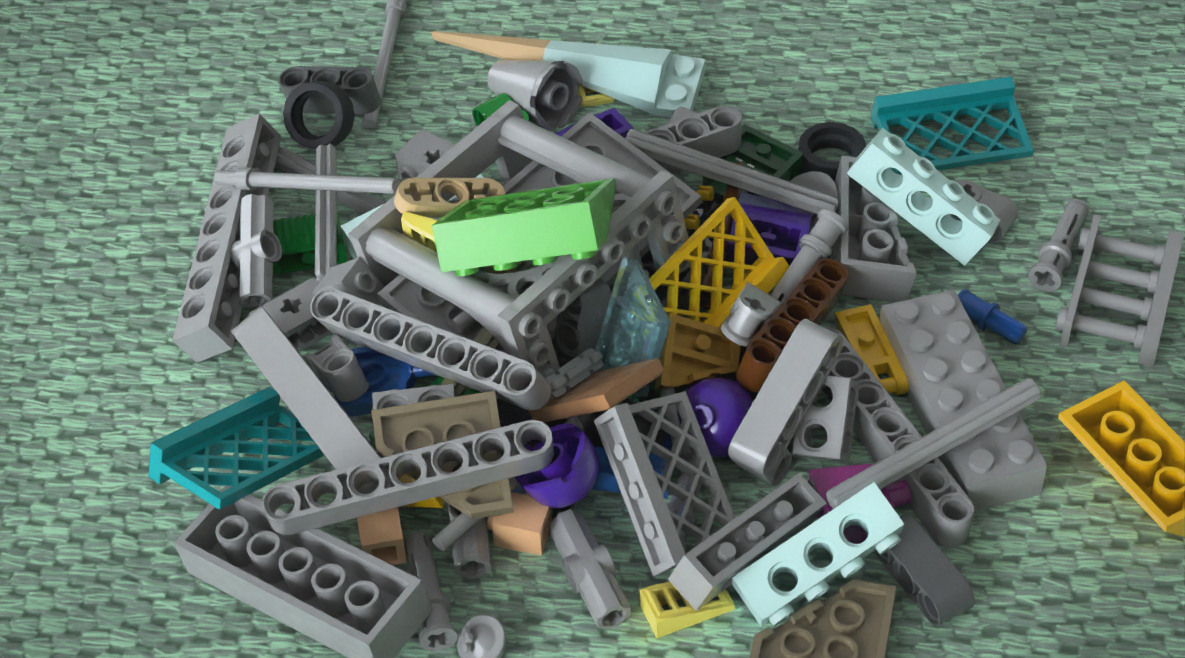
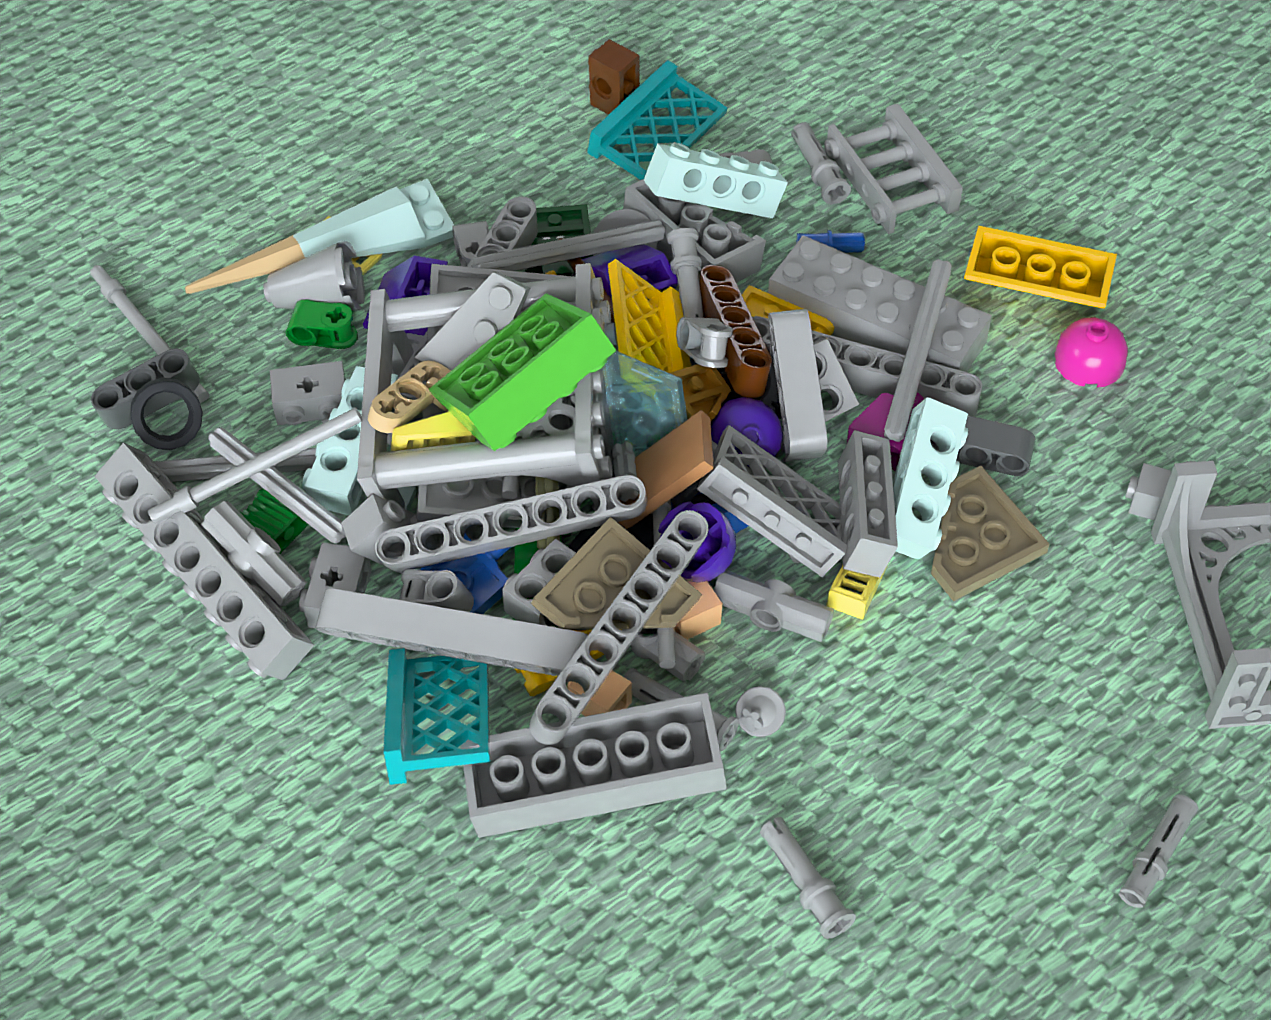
camera: 45 degrees left, 5 degrees up
(562, 164) = (476, 321): none -> wing
(829, 136) = (592, 178): black tyre -> none
(944, 58) = (612, 75): none -> reddish brown brick
(1125, 567) = (1091, 352): none -> dark pink cylinder

